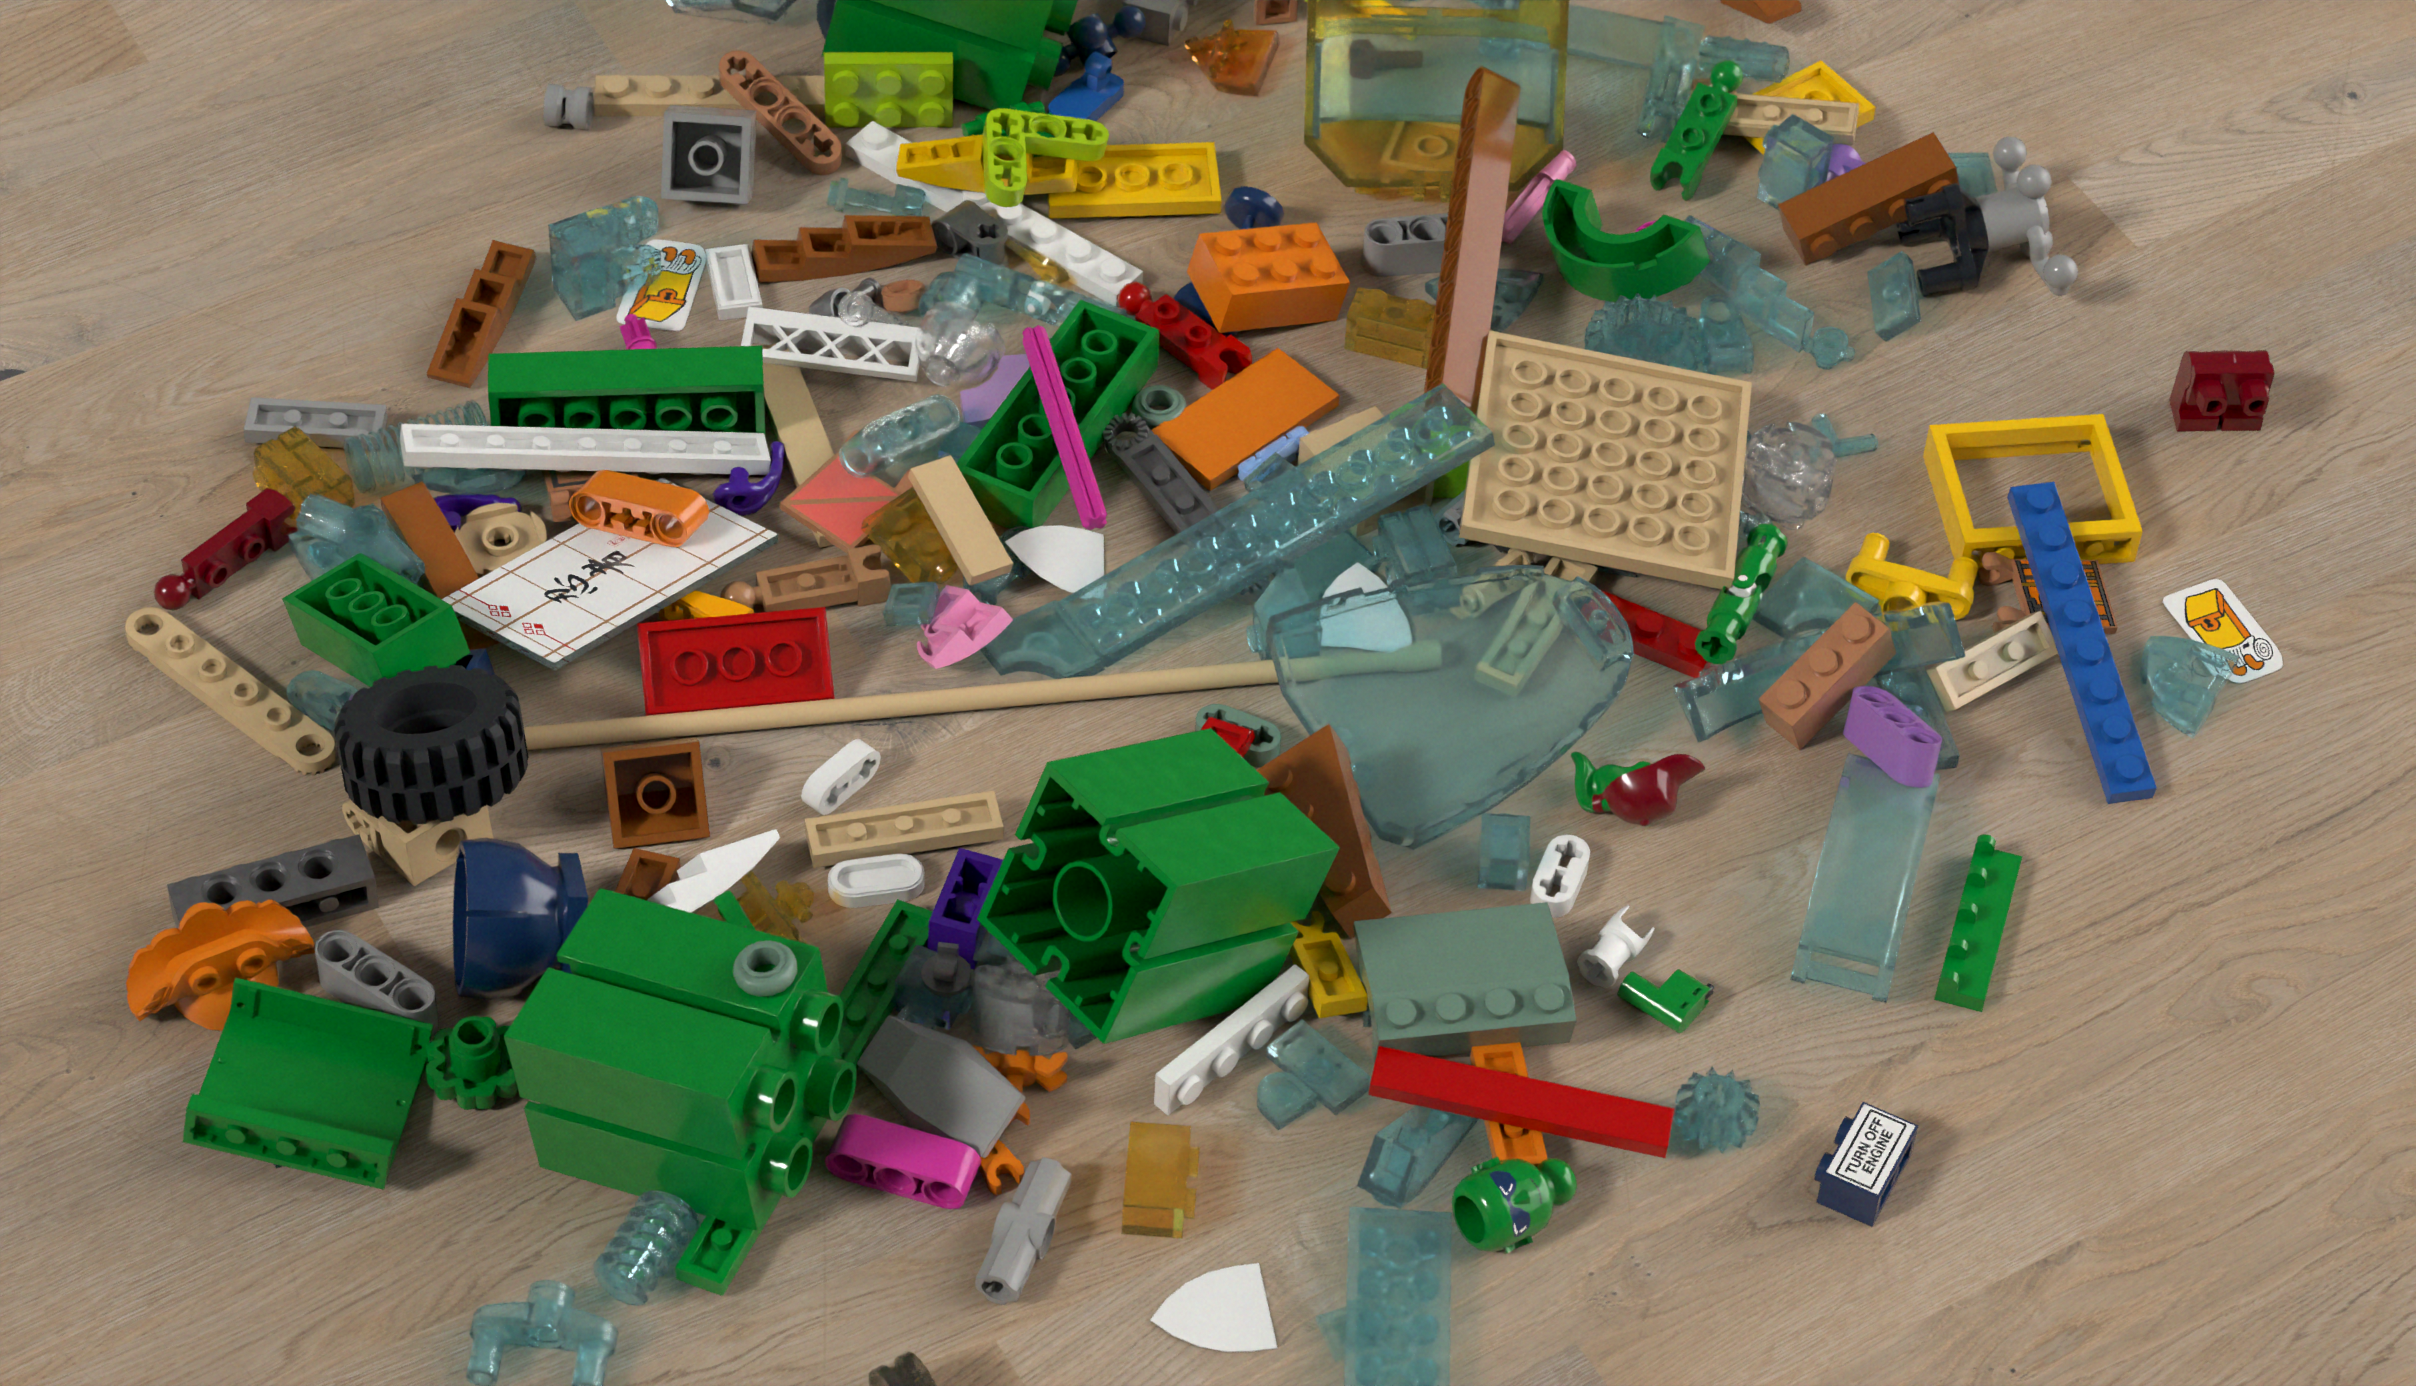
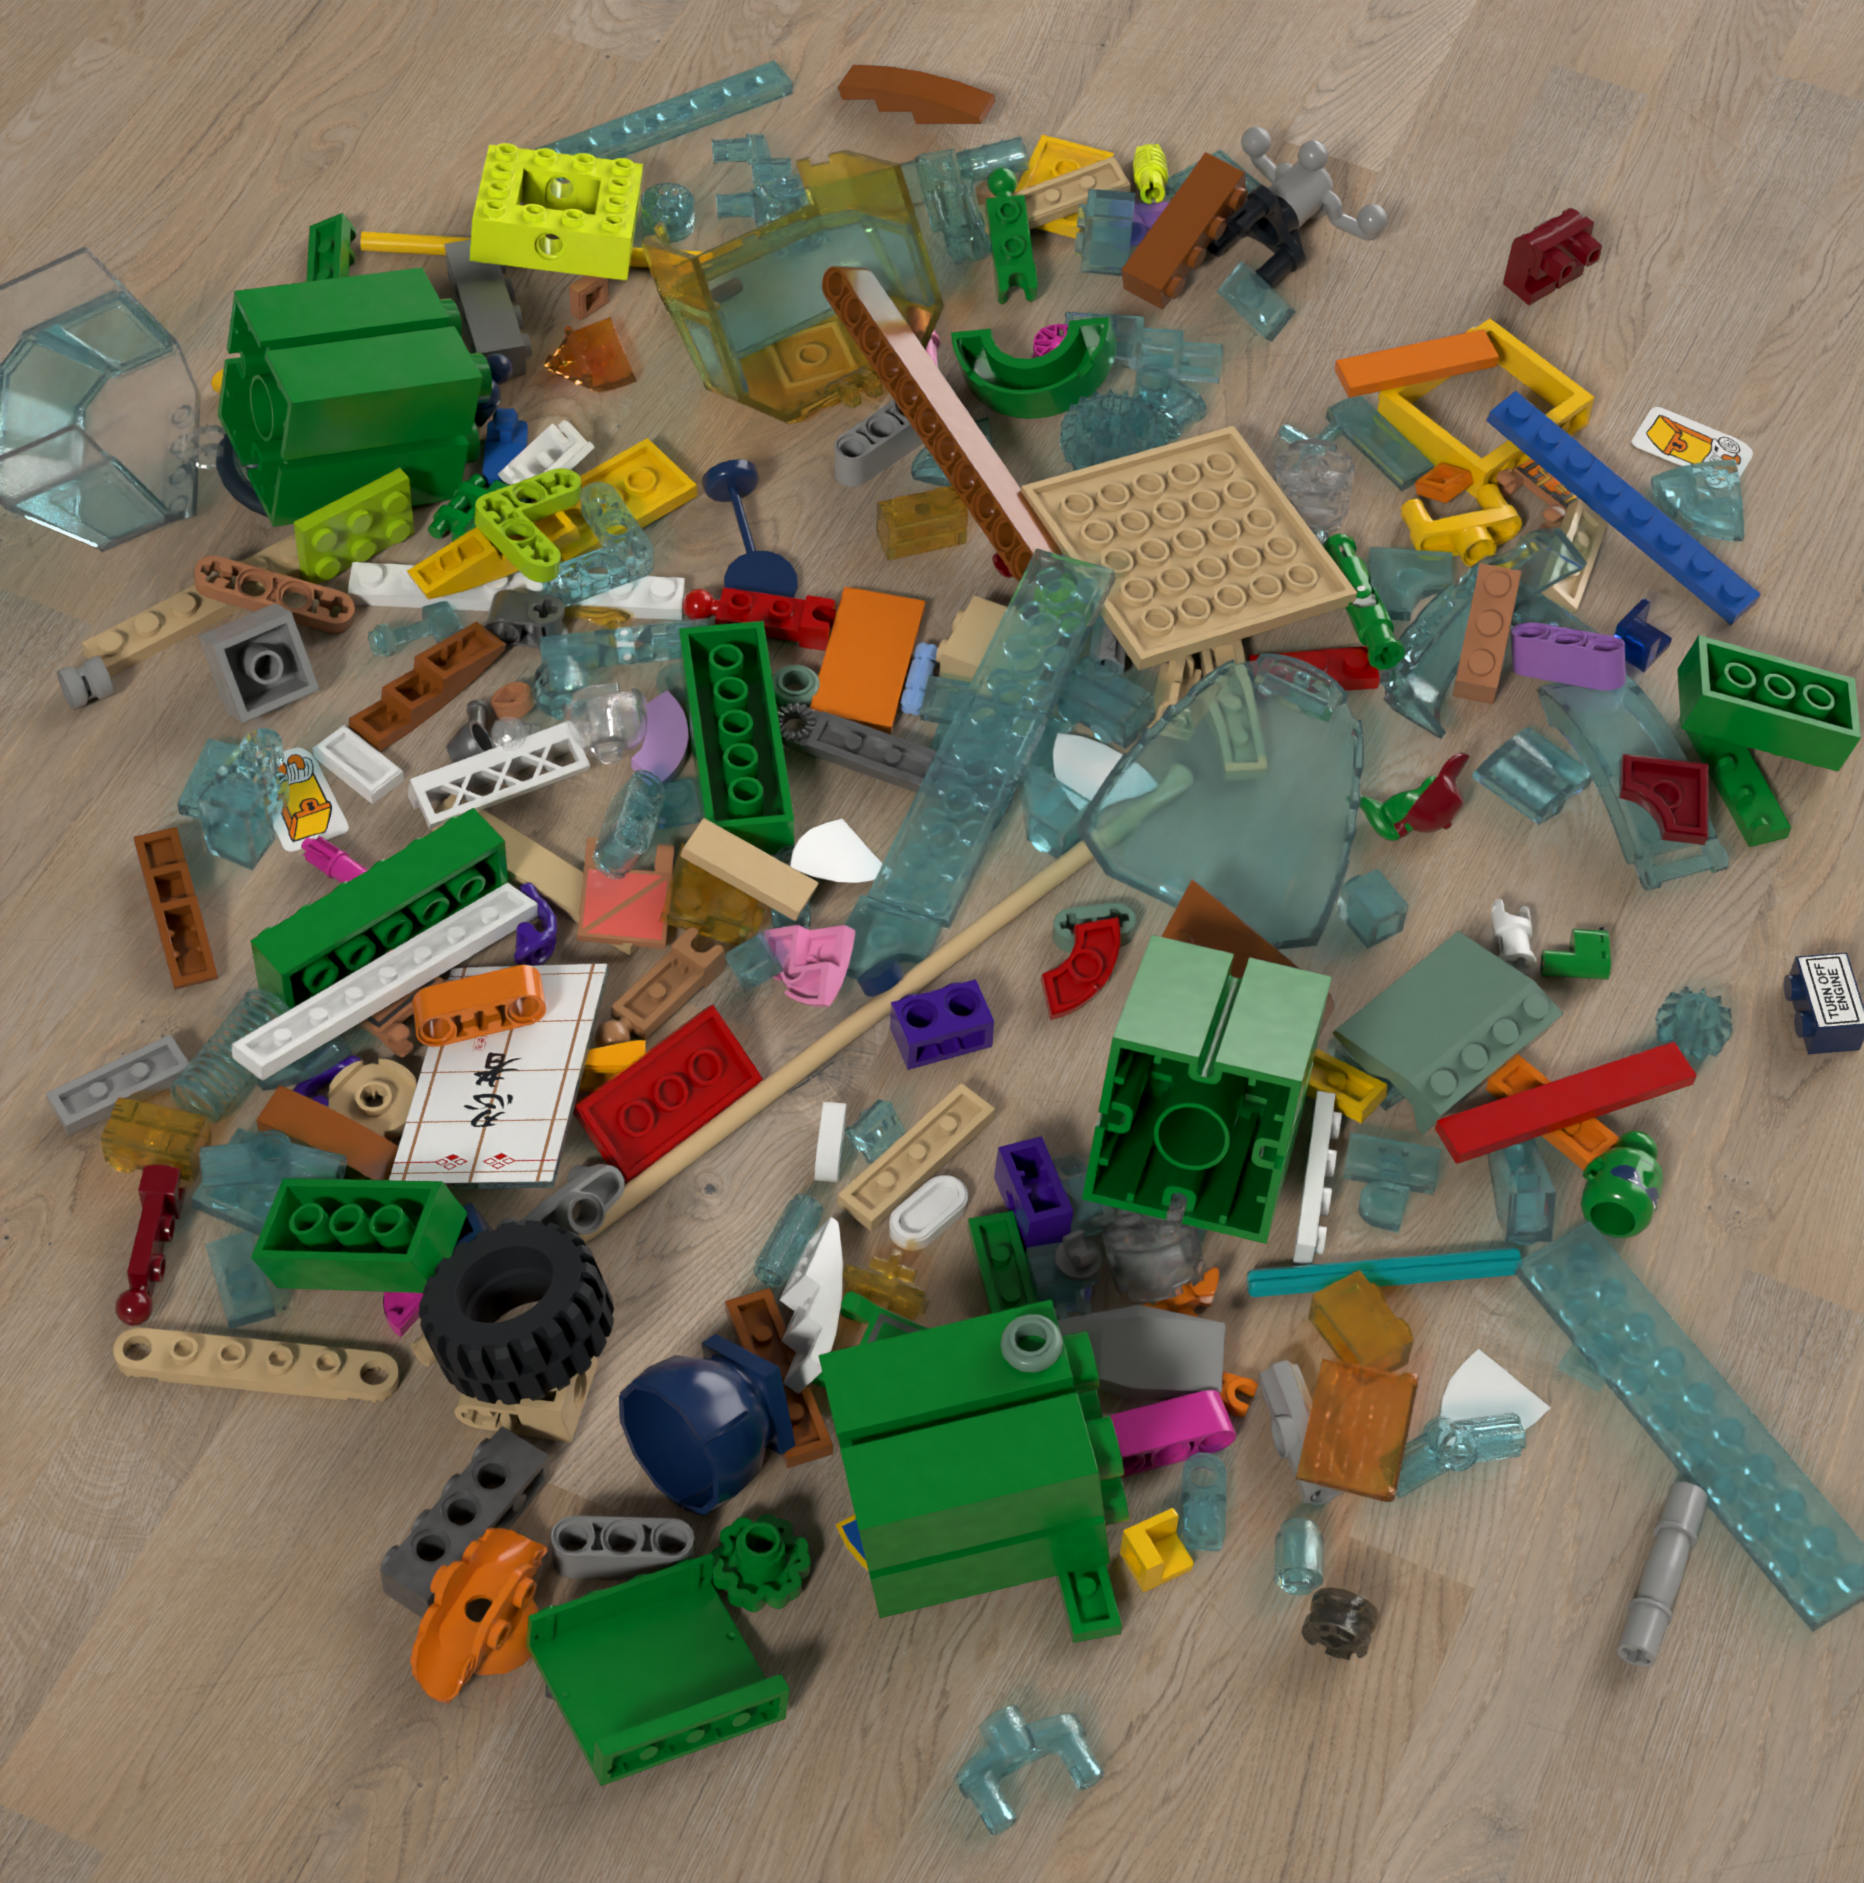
camera: 35 degrees left, 5 degrees up
(267, 623) = (240, 1280): none -> clear light blue plate
(320, 709) = (356, 1316): clear light blue beam -> none
(597, 699) = (593, 1187): none -> light grey connector
(644, 1246) = (1036, 1633): clear light blue piece -> none
(655, 792) = (696, 1241): dark orange slope -> none
(735, 827) = (788, 1240): none -> clear light blue piece
(810, 1247) = (1155, 1550): none -> yellow panel
(886, 785) = (875, 1130): none -> clear light blue tile
(888, 1241) = (1203, 1506): none -> clear light blue piece
(926, 1323) = (1299, 1556): none -> clear light blue brick
(1003, 671) = (881, 977): none -> dark blue tile
(1021, 734) = (942, 1030): none -> dark purple brick
(1064, 428) = (769, 744): dark pink axle -> none
(1064, 1249) = (1358, 1429): none -> clear orange piece
(1087, 221) = (611, 556): none -> clear light blue beam
(1110, 1315) = (1475, 1441): none -> clear light blue piece
(1124, 114) = (547, 452): none -> white hinge
(1231, 1151) = (1384, 1271): none -> teal axle
(1268, 277) = (796, 531): orange brick -> none
(1568, 878) = (1430, 901): white beam -> none
(1769, 824) = (1533, 775): none -> clear light blue slope
(1829, 347) = (1243, 367): clear light blue plate -> none
(1868, 897) = (1671, 792): none -> dark red tile
(1892, 135) = (1150, 172): none -> neon yellow hinge
(1904, 474) = (1379, 441): none -> clear light blue tile
(1929, 537) = (1443, 482): none -> orange tile
(1985, 415) = (1416, 363): none -> orange tile
(1994, 762) = (1642, 641): none -> clear blue panel
(2048, 874) = (1768, 703): none -> green brick

